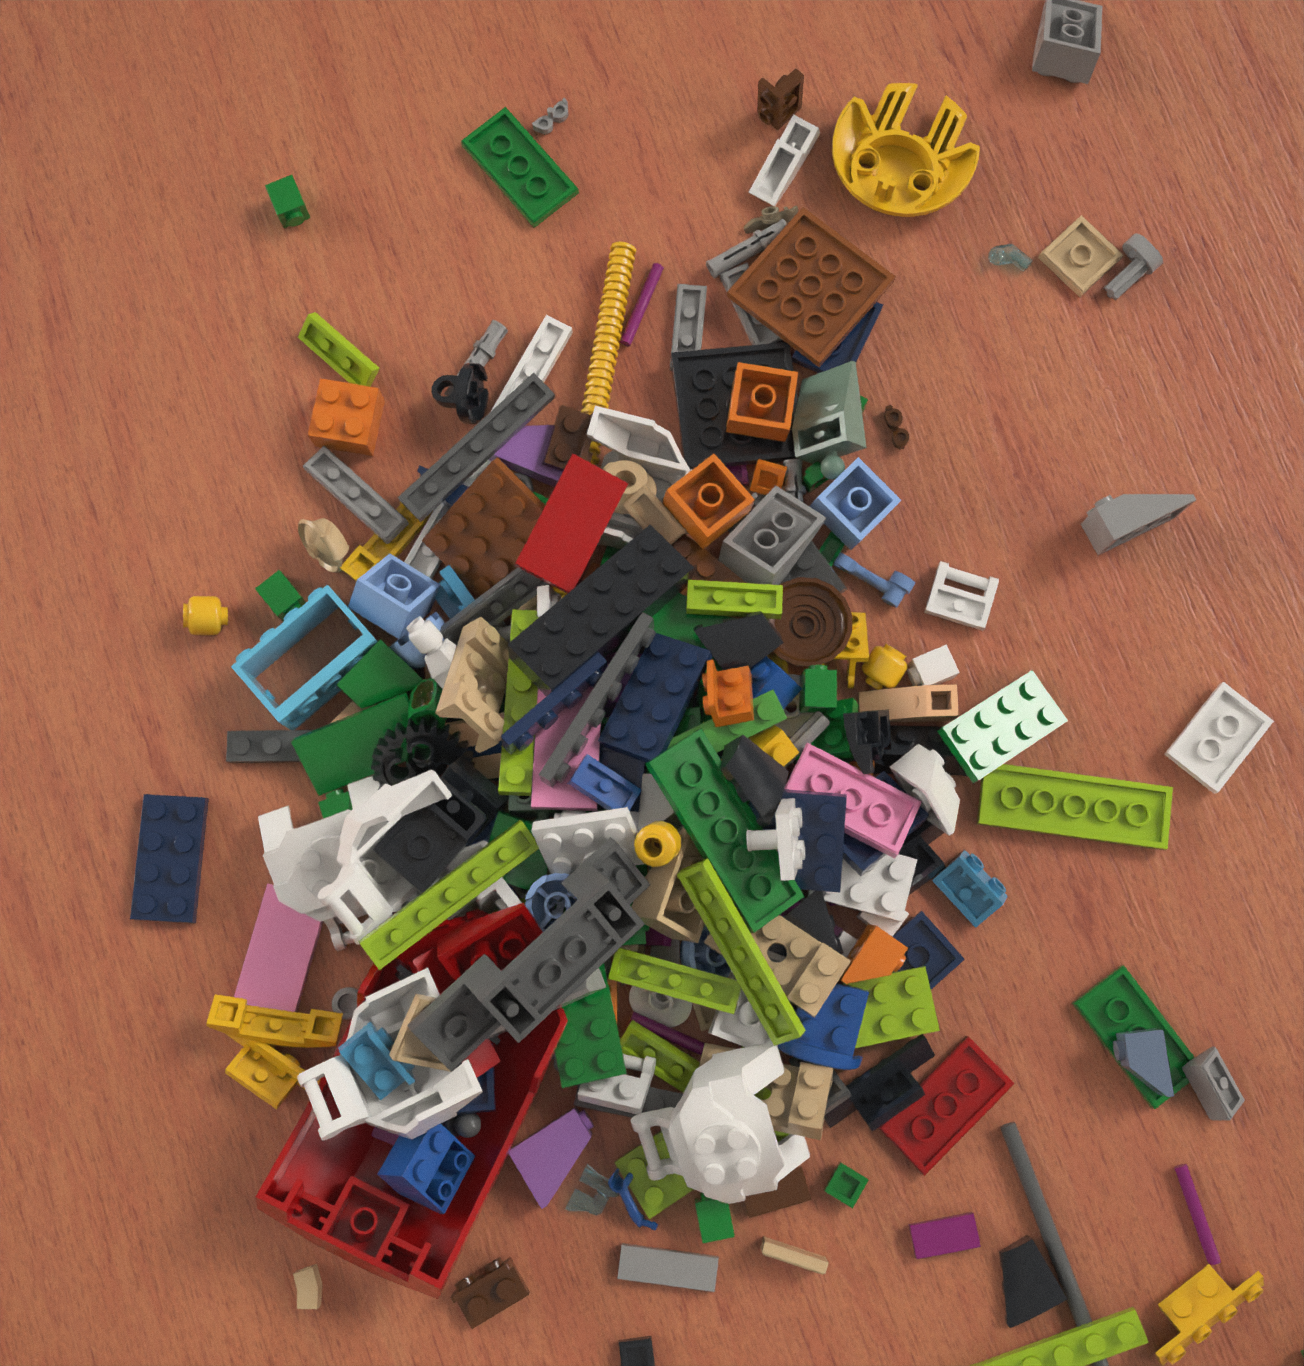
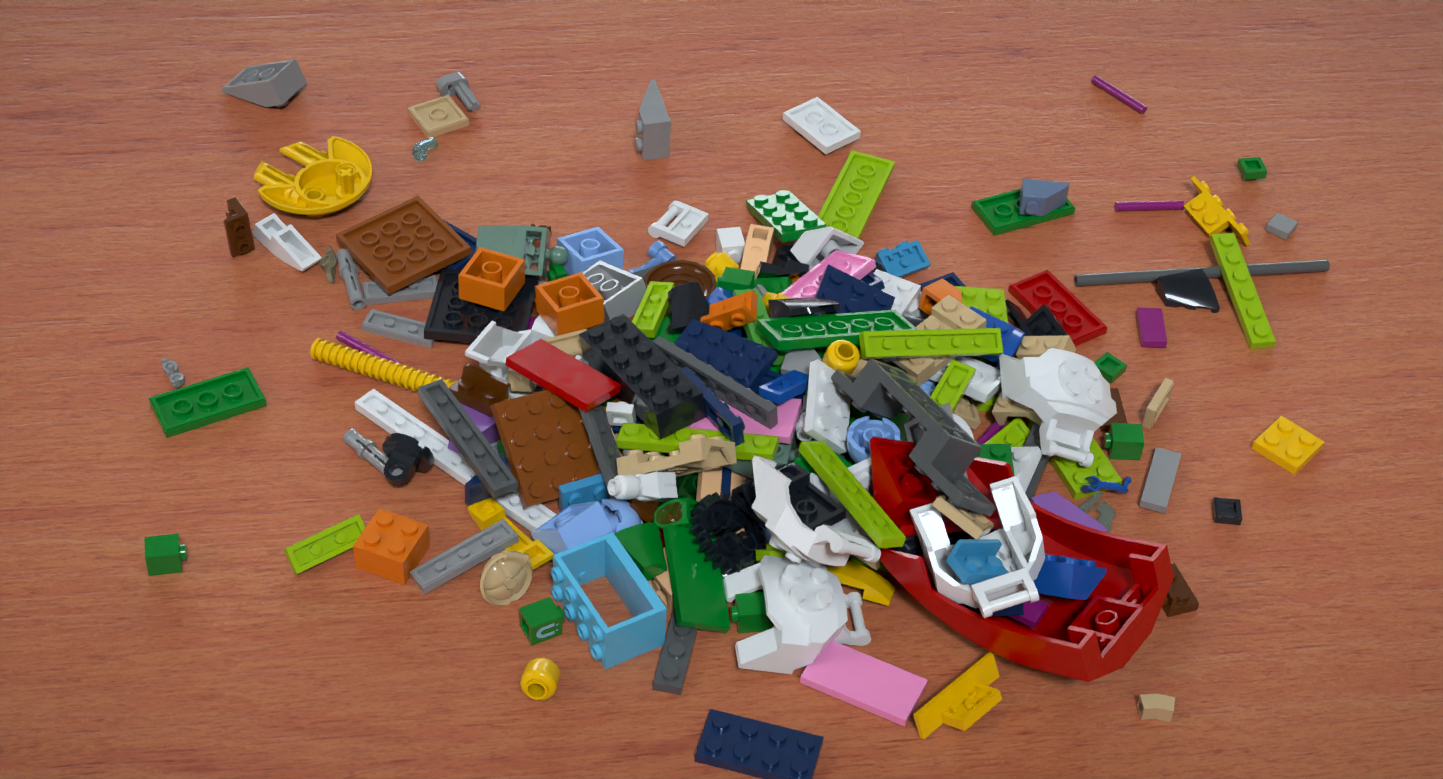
camera: 85 degrees left, 35 degrees down
(274, 1026) = (933, 673): yellow slope -> none
(345, 1002) = (917, 642): light grey tile -> none
(783, 838) = (854, 290): white plate -> none
(1213, 1085) = (1075, 177): light grey slope -> none

